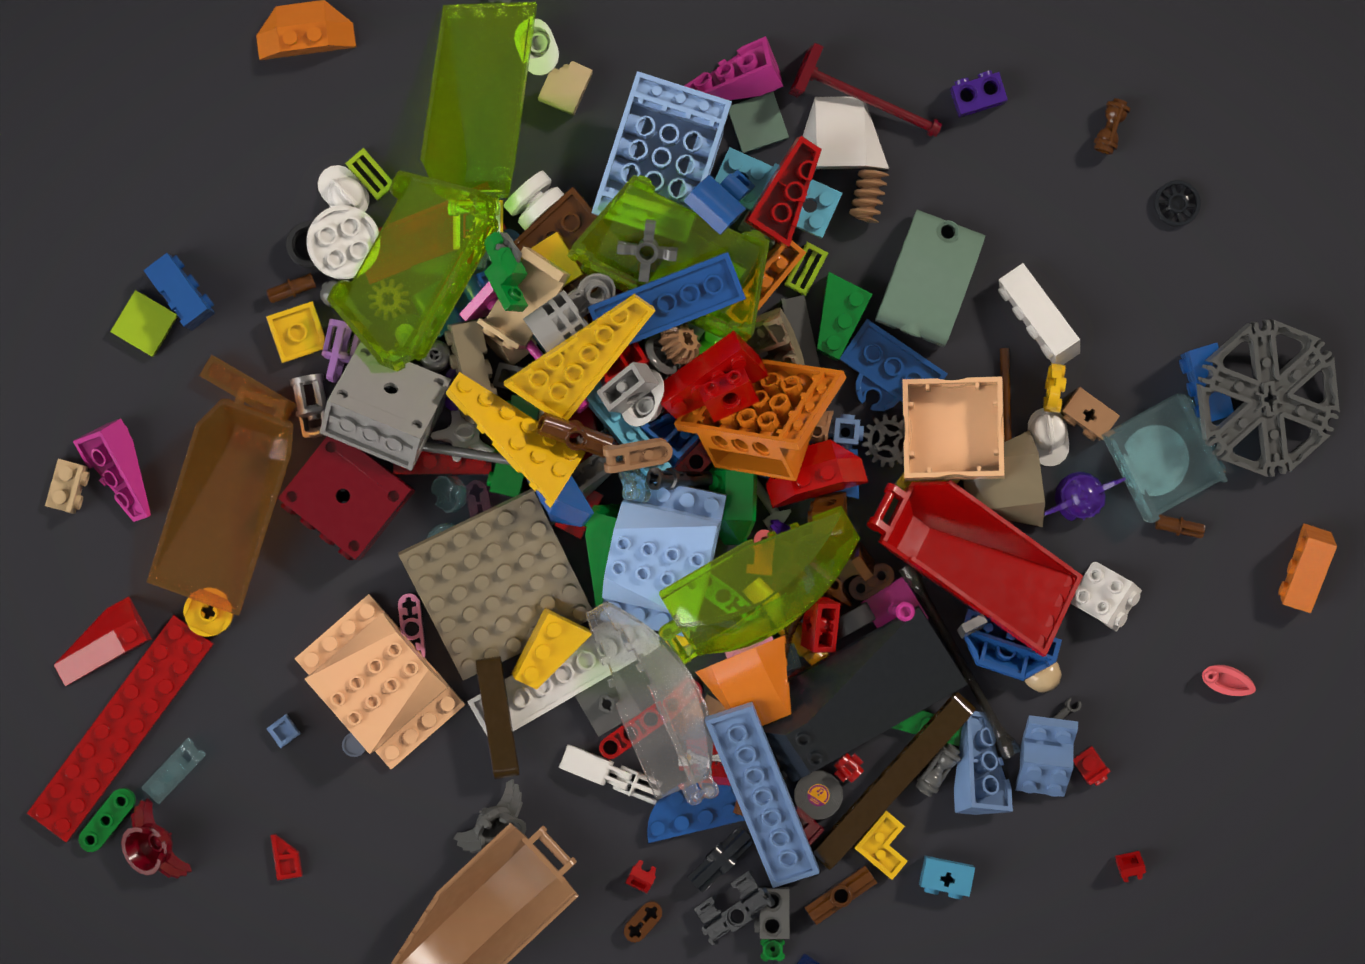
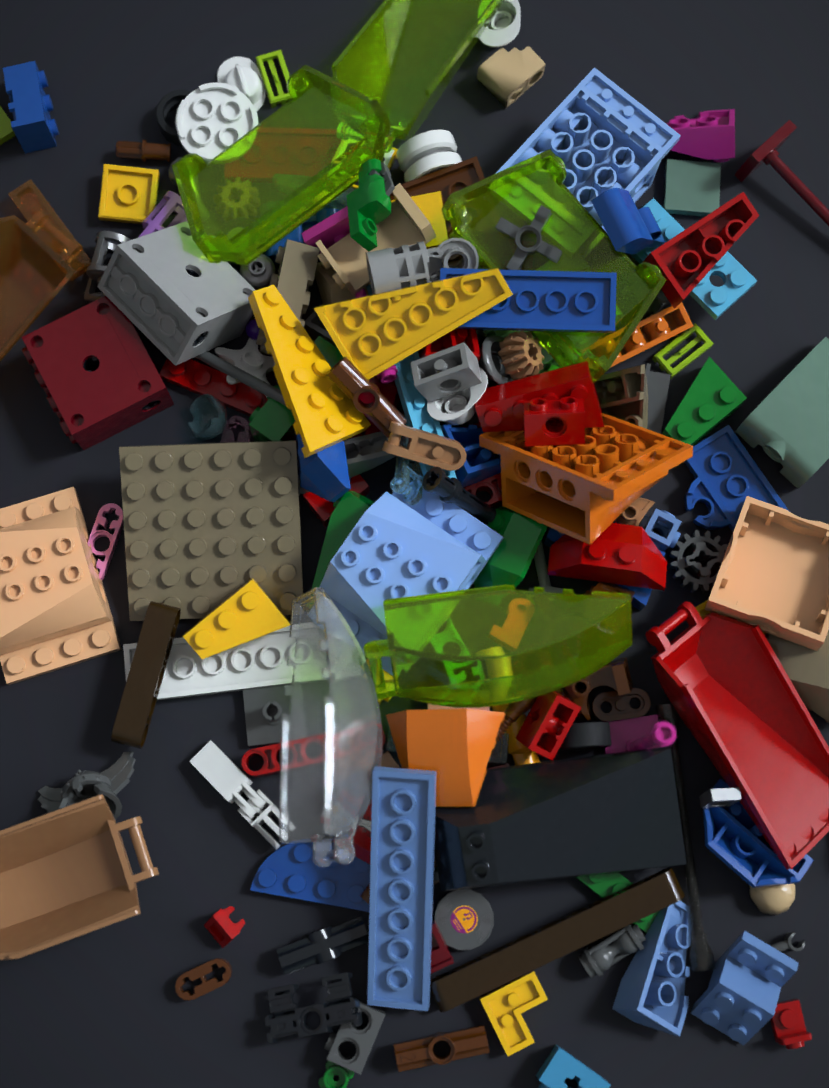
camera: 20 degrees right, 10 degrees down
(844, 134) = (779, 237): white wedge -> none
(848, 767) = (511, 902): red gear -> none
(868, 195) = (780, 301): medium nougat piece -> none

